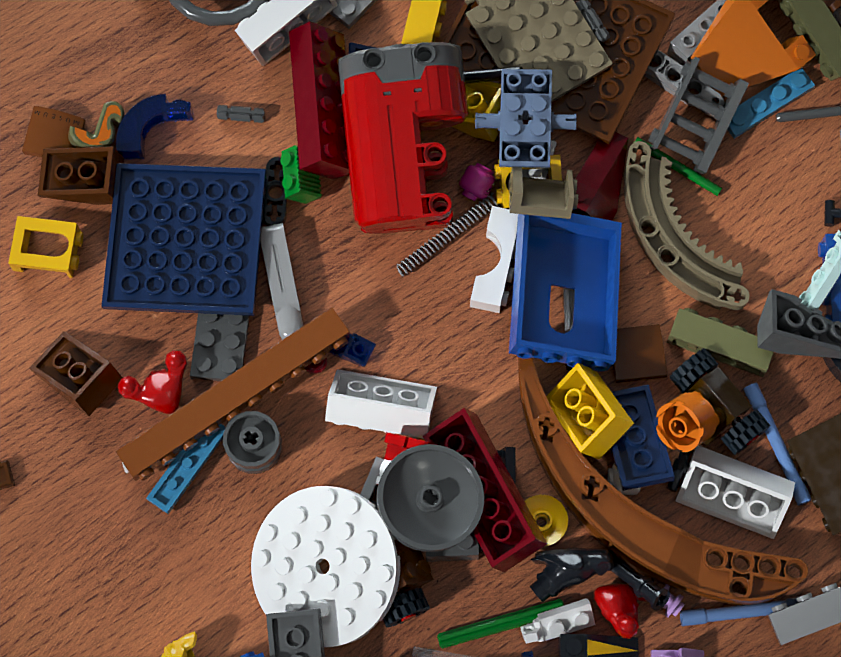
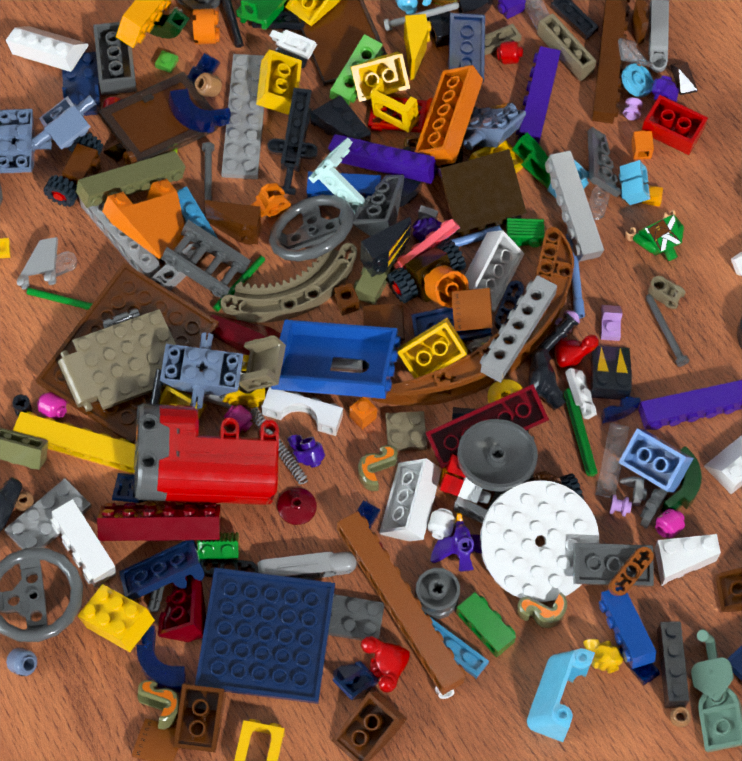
camera: 90 degrees left, 10 degrees down
(137, 349) = (354, 679): none -> dark blue slope
(159, 603) = (546, 713): none -> medium azure windscreen
(196, 66) = (116, 618): none -> yellow brick
(216, 507) = (486, 624): none -> green brick
(223, 146) = (184, 613): none -> dark red wedge
(234, 577) = (542, 614): none -> olive animal
(260, 110) = (162, 569): none -> dark blue hinge
(320, 465) = (460, 543): none -> dark purple animal
(349, 443) = (441, 523): none -> white head
(370, 277) = (297, 514): none -> dark red dish
(429, 350) = (376, 462): none -> olive animal
(438, 266) = (306, 450): none -> dark purple head
(483, 391) = (406, 430): none -> dark tan plate
(497, 334) = (363, 412): none -> orange brick
(634, 533) = (498, 368): none -> light grey brick
(651, 456) = (472, 309): none -> dark orange slope
(660, 308) = (346, 305): none -> reddish brown brick
(707, 518) = (508, 298): none -> dark blue beam
(737, 337) = (383, 248): none -> black slope
(761, 246) = (315, 231): none -> dark grey piece
(762, 159) = (235, 220): none -> reddish brown slope
(762, 402) = (432, 240): none -> coral plate
(785, 403) = (424, 227): none -> dark purple head
(800, 188) = (270, 200): none -> orange hinge
(805, 535) = (526, 231): none -> green brick
(811, 400) = (425, 212): none -> light grey plate

